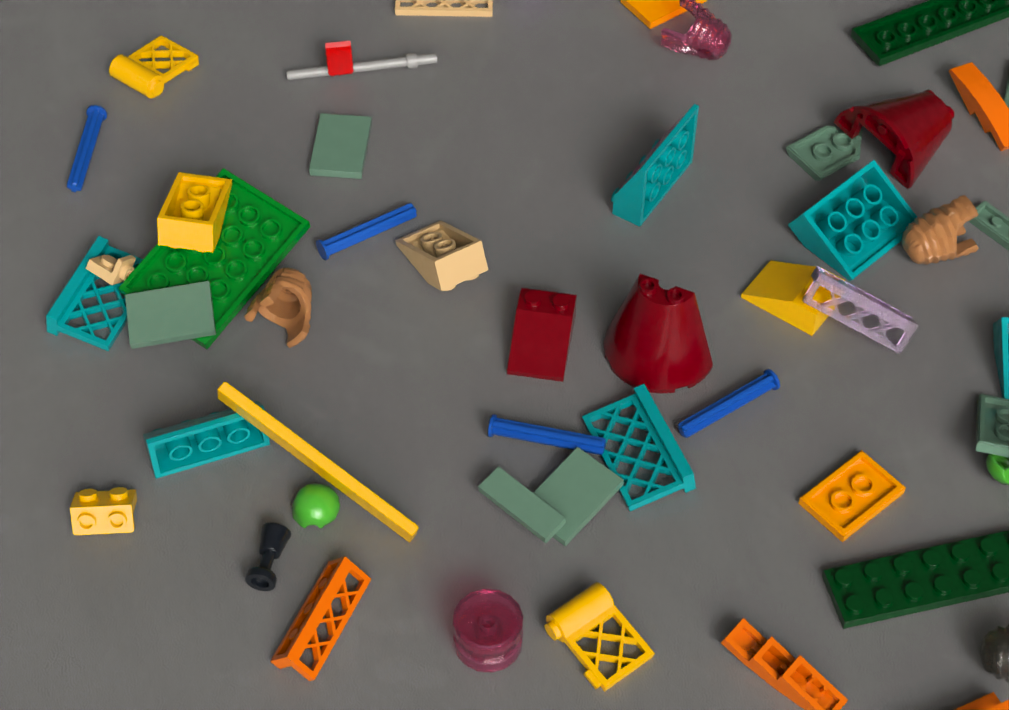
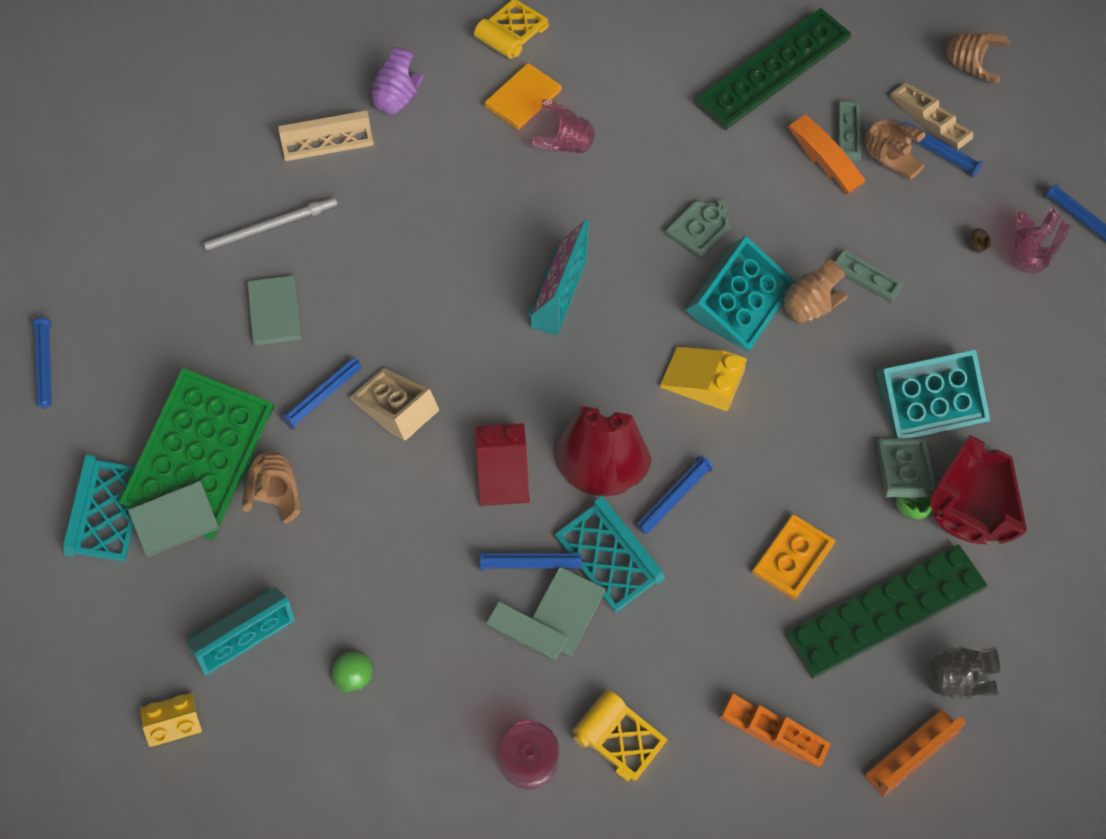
camera: 15 degrees left, 10 degrees up
(111, 269) = (107, 487): tan bracket -> none
(143, 74) = (71, 274): yellow piece -> none
(194, 212) = (169, 418): yellow slope -> none
(272, 542) = (325, 716): black piece -> none
(312, 613) = (379, 766): orange fence -> none
(317, 462) = (346, 637): yellow tile -> none
(339, 58) = (249, 221): red slope -> none
(864, 300) = (765, 376): fence -> none
(907, 125) = (763, 192): dark red cone -> none

